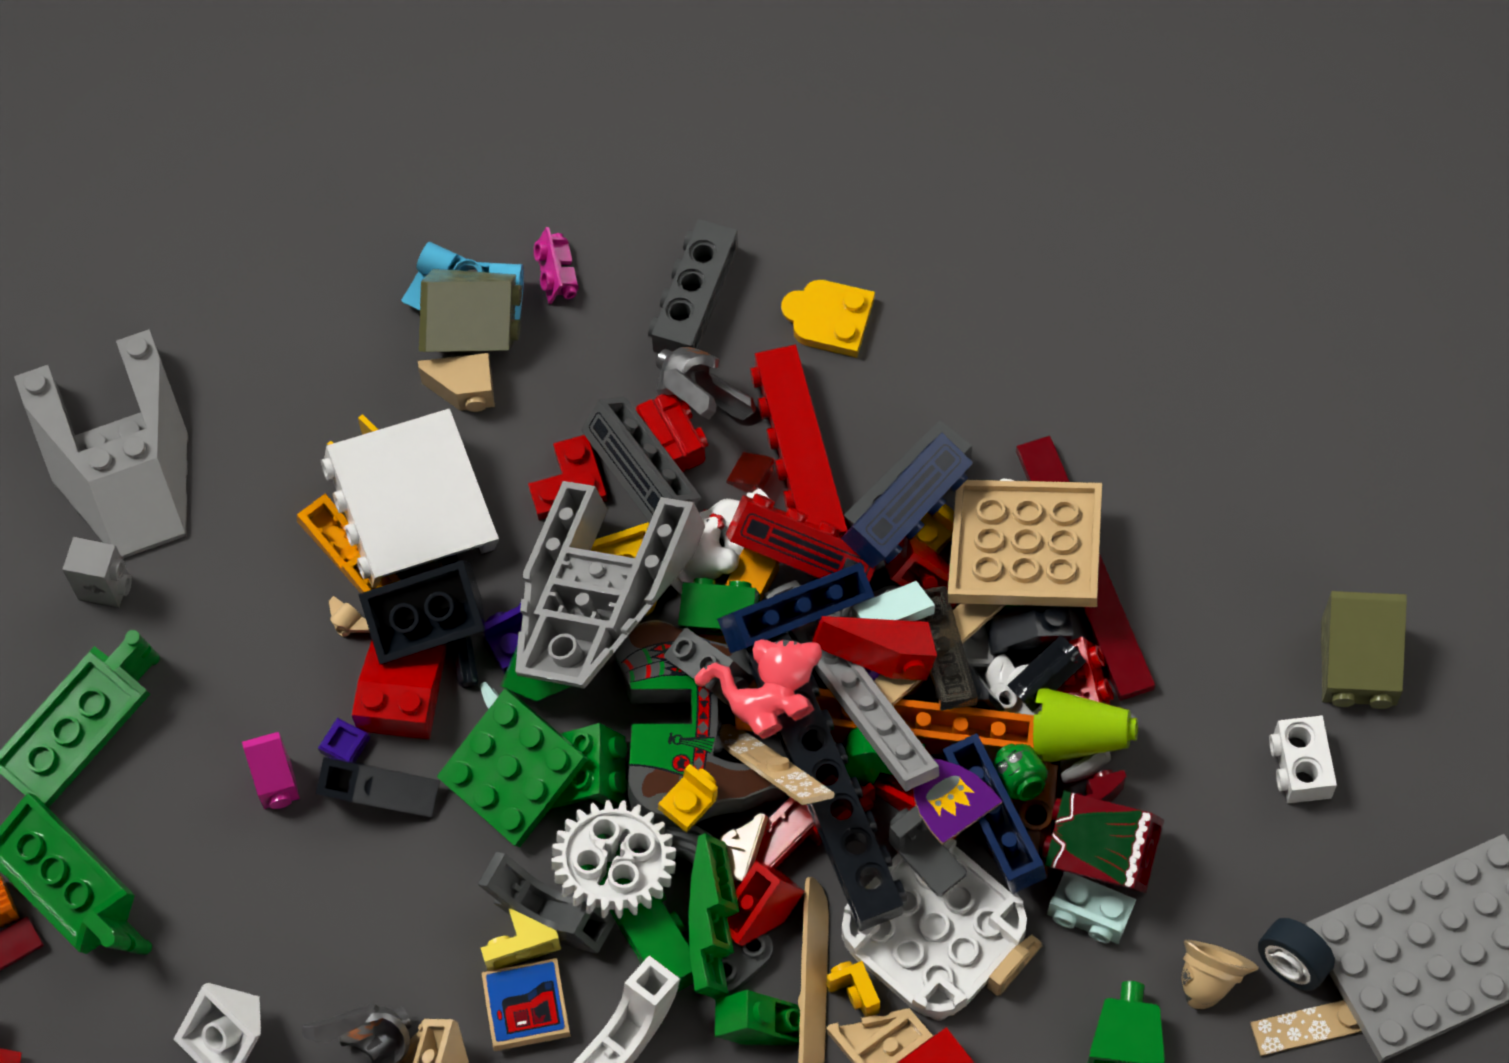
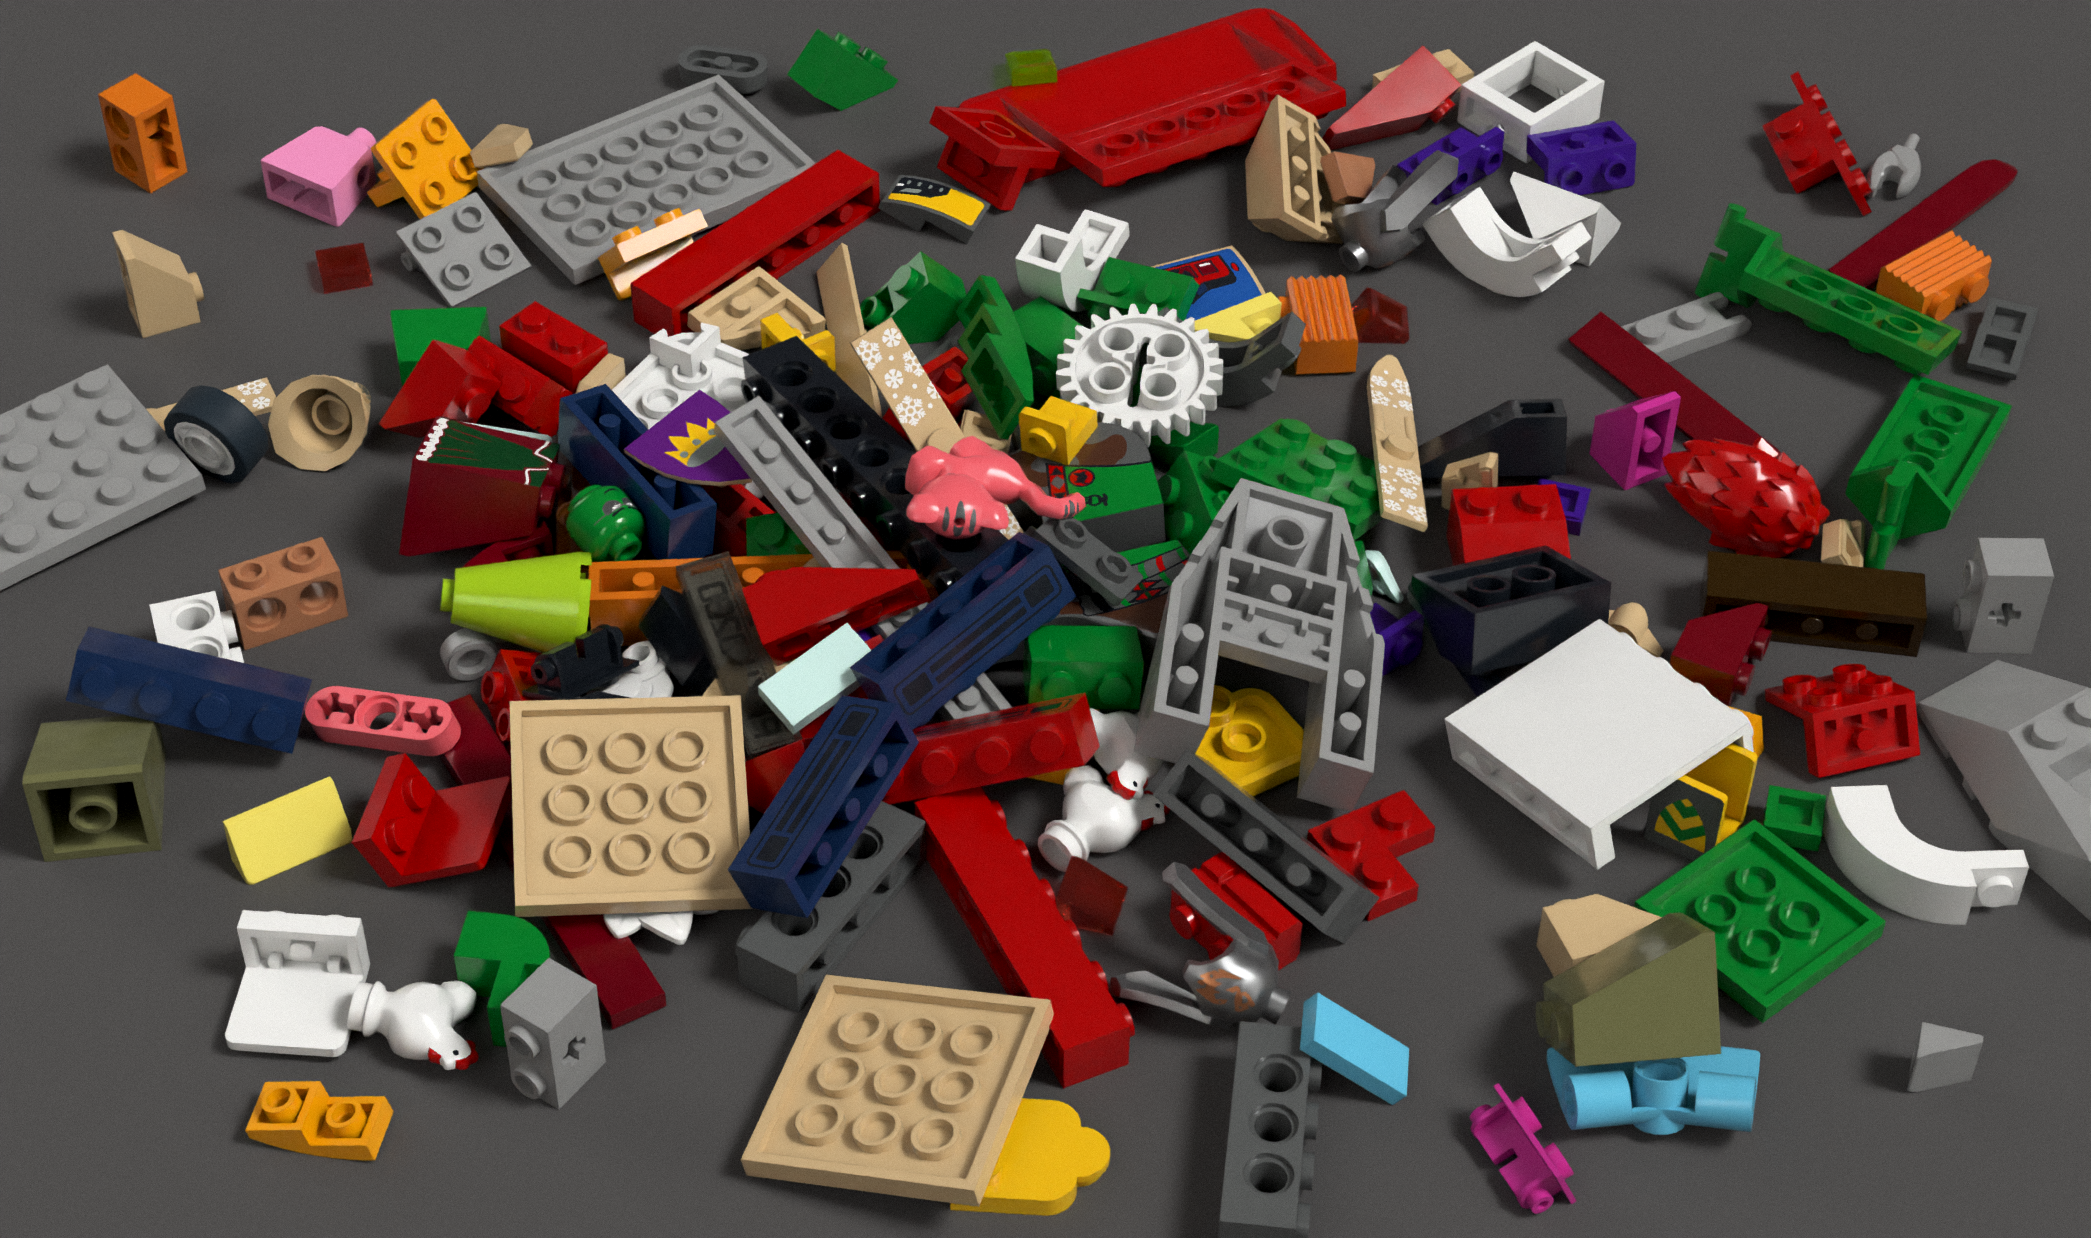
camera: 165 degrees right, 20 degrees down
(170, 658) = (1843, 542): none -> tan tile
(185, 902) = (1689, 328): none -> light grey hinge
(216, 612) = (1821, 601): none -> dark brown brick
(218, 820) = (1649, 375): none -> dark red piece
(222, 695) = (1746, 496): none -> red head
(239, 526) = (1850, 718): none -> red bracket
(271, 425) = (1909, 873): none -> white arch
(279, 983) = (1497, 256): none -> white arch
(298, 579) = (1721, 648): none -> dark red slope
(304, 276) = (1942, 1057): none -> light grey slope
(306, 451) = (1795, 816): none -> green plate
(361, 377) = (1772, 918): none -> green plate
(402, 746) = (1469, 473): none -> tan tile
(404, 958) = (1380, 318): none -> clear red slope
(442, 799) = (1395, 445): none -> tan piece
(454, 942) = (1330, 330): none -> orange brick
(583, 987) = (1138, 284): none -> green bracket
(630, 327) = (1354, 1048): none -> medium azure tile
(891, 347) = (900, 1089): none -> tan plate
(1039, 1009) = (552, 345): none -> red brick
(1073, 974) = (523, 390): none -> red brick
(1085, 403) = (553, 1033): none -> light grey brick
(1117, 477) = (496, 958): none -> green brick
(1126, 951) = (444, 385): none -> red slope
(1146, 577) = (426, 833): none -> red bracket
(1161, 448) = (417, 1020): none -> white animal
(1194, 675) = (398, 736): none -> coral beam
(1220, 403) = (308, 1121): none -> light orange slope
(1234, 481) = (297, 983): none -> white bracket
(1240, 605) = (287, 831): none -> light yellow slope
(1245, 799) = (283, 593): none -> nougat brick
(1305, 690) = (188, 689): none -> dark blue brick

